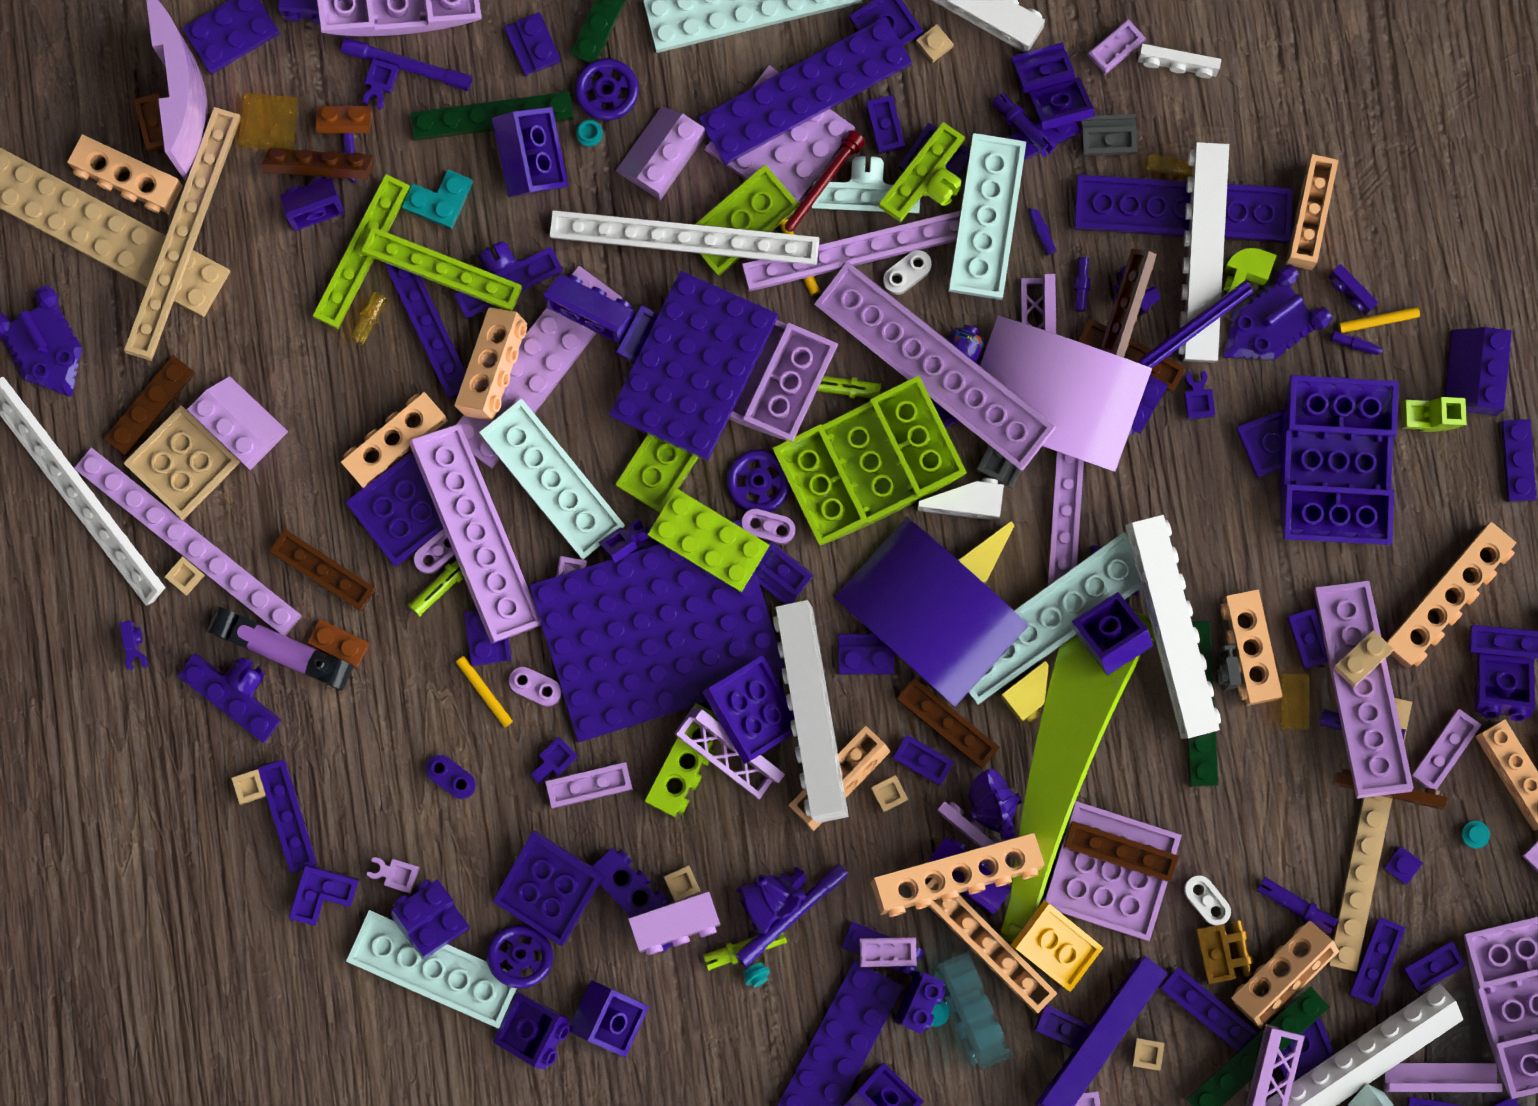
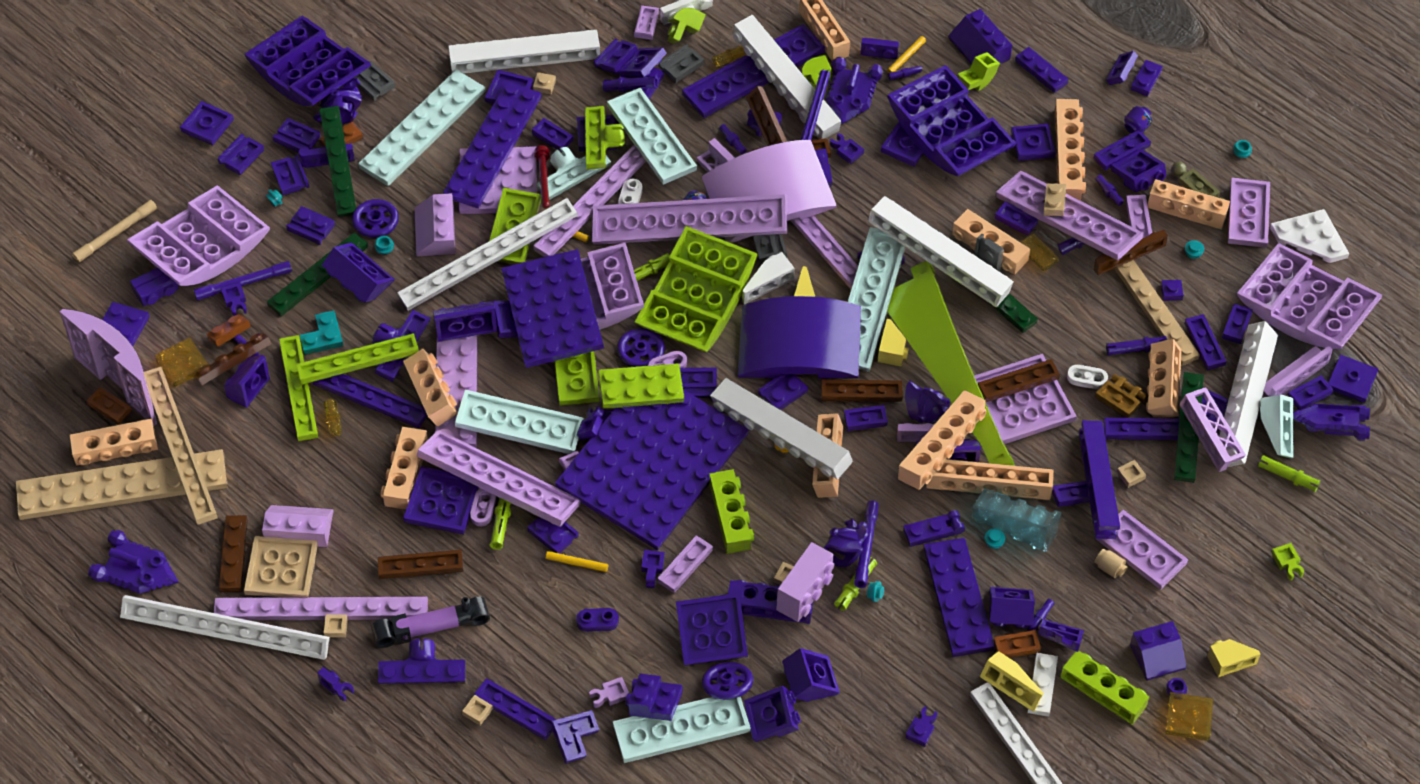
camera: 40 degrees left, 25 degrees down
(338, 643) = (453, 596): dark orange plate -> none
(533, 688) = (605, 538): lavender plate -> none
(714, 728) = (751, 478): lavender fence -> none
(751, 709) = (746, 448): dark purple plate -> none
(887, 952) = (939, 520): lavender plate -> none
(889, 793) = (862, 447): tan plate -> none
(919, 1002) = (981, 531): dark purple plate -> none
(1042, 231) = (687, 130): dark purple piece -> none
(1057, 946) = (1029, 449): yellow plate -> none
(1112, 633) = (911, 273): dark purple brick -> none
(1158, 80) = (684, 19): none -> lime brick
(1418, 552) = (1033, 142): none -> dark purple plate
(1449, 683) = (1109, 190): none -> dark purple bar

